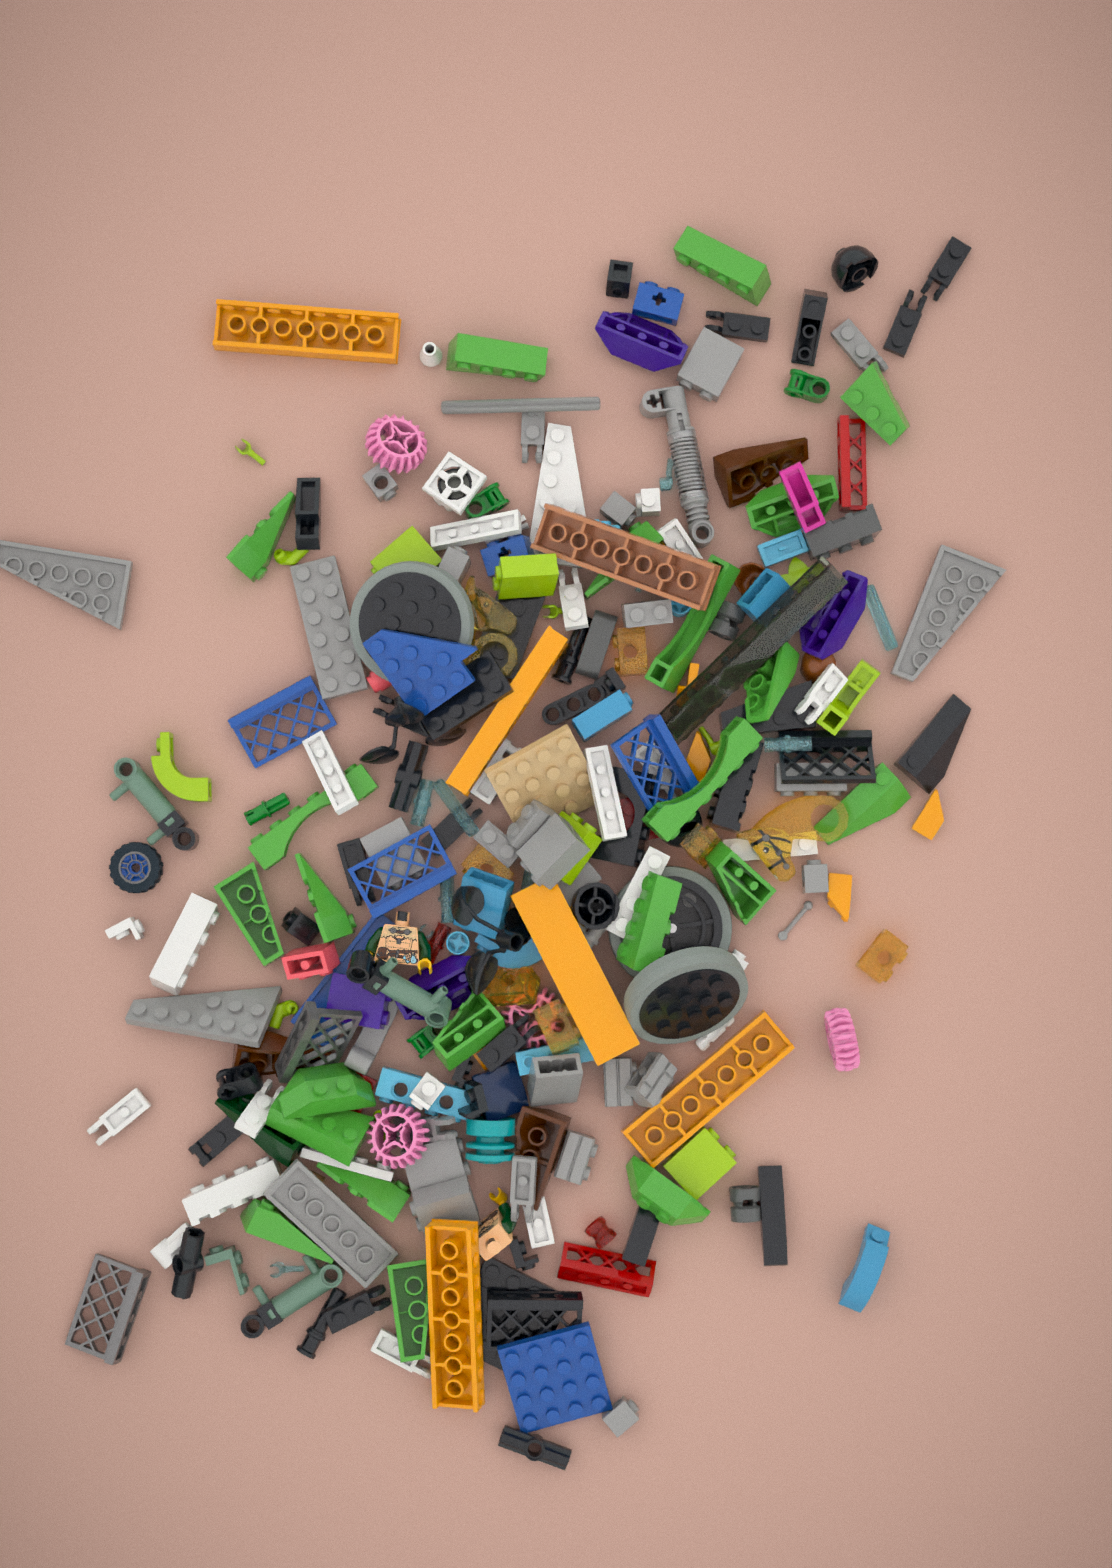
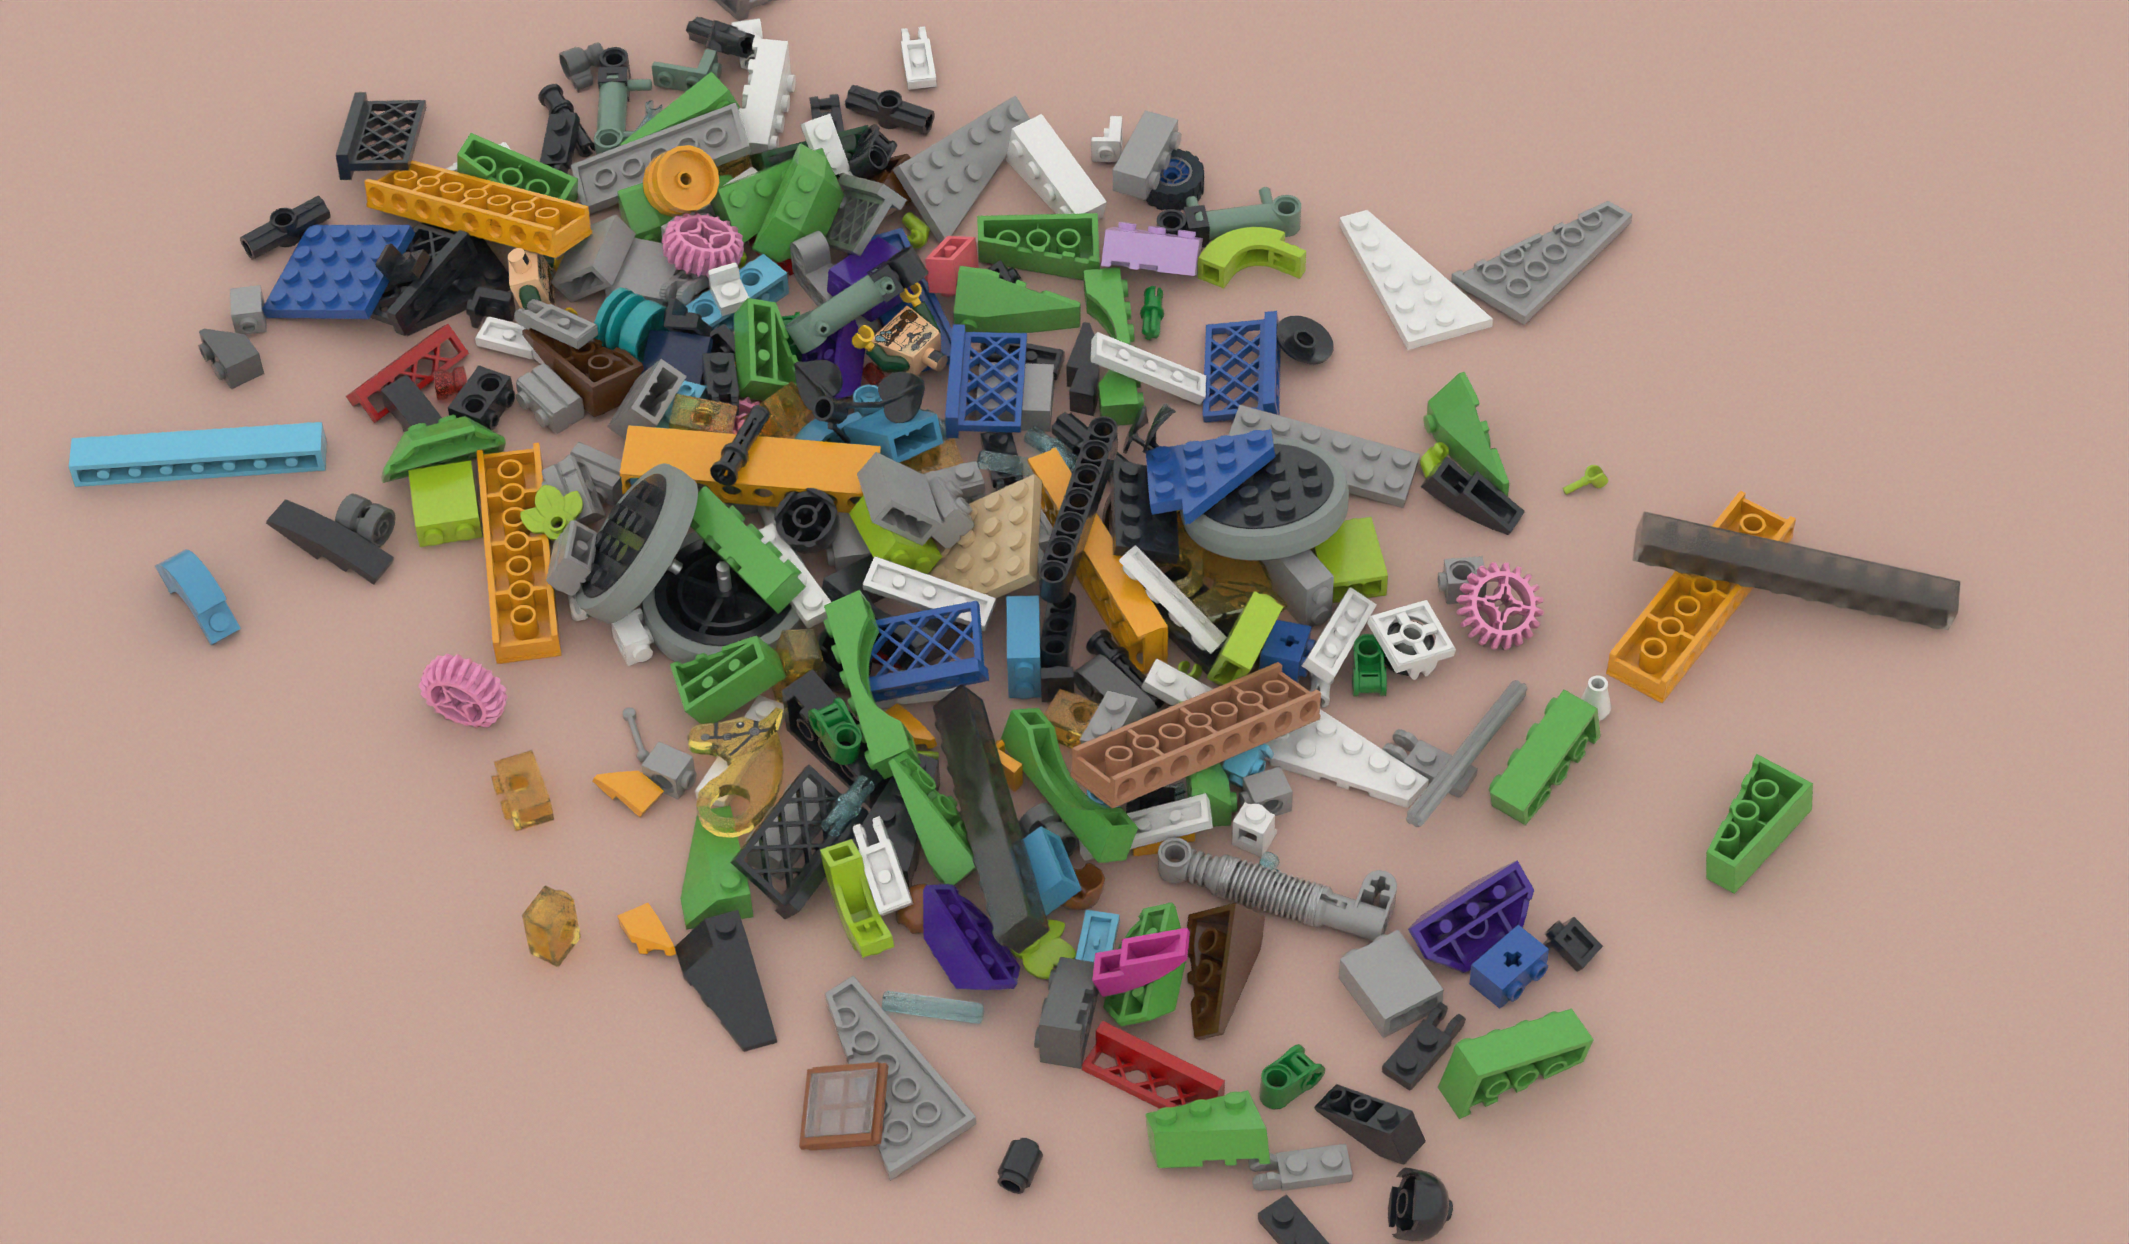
camera: 125 degrees right, 35 degrees down
(136, 887) = (1146, 155): none -> light grey brick
(145, 648) = (1414, 294): none -> white wing
(183, 1117) = (889, 109): none -> black piece
(218, 836) = (1152, 249): none -> lavender wedge
(231, 685) = (1304, 340): none -> black dish
(263, 1354) = (577, 64): none -> dark grey piece
(266, 275) = (1796, 571): none -> clear smoke brick
(345, 822) = (1083, 374): none -> black slope
(362, 1181) = (681, 181): none -> light orange wheel
(435, 1454) = (358, 133): none -> black fence
(469, 211) = (1757, 822): none -> bright green wedge
(483, 730) = (1078, 510): none -> black beam
(524, 636) = (1164, 591): none -> white plate
(538, 1326) = (401, 267): none -> black bracket
(582, 977) = (736, 455): none -> black pin
(605, 1206) = (484, 397): none -> black brick
(665, 1395) = (232, 356): none -> dark grey slope
(677, 1081) = (550, 510): none -> lime plate
(708, 1039) = (572, 558): none -> light grey brick
(746, 781) = (836, 725): none -> green piece
(756, 1356) = (198, 454): none -> medium azure brick
(955, 502) = (1019, 1165): none -> black brick
(970, 866) = (551, 925): none -> clear yellow brick
(980, 622) = (844, 1106): none -> clear piece

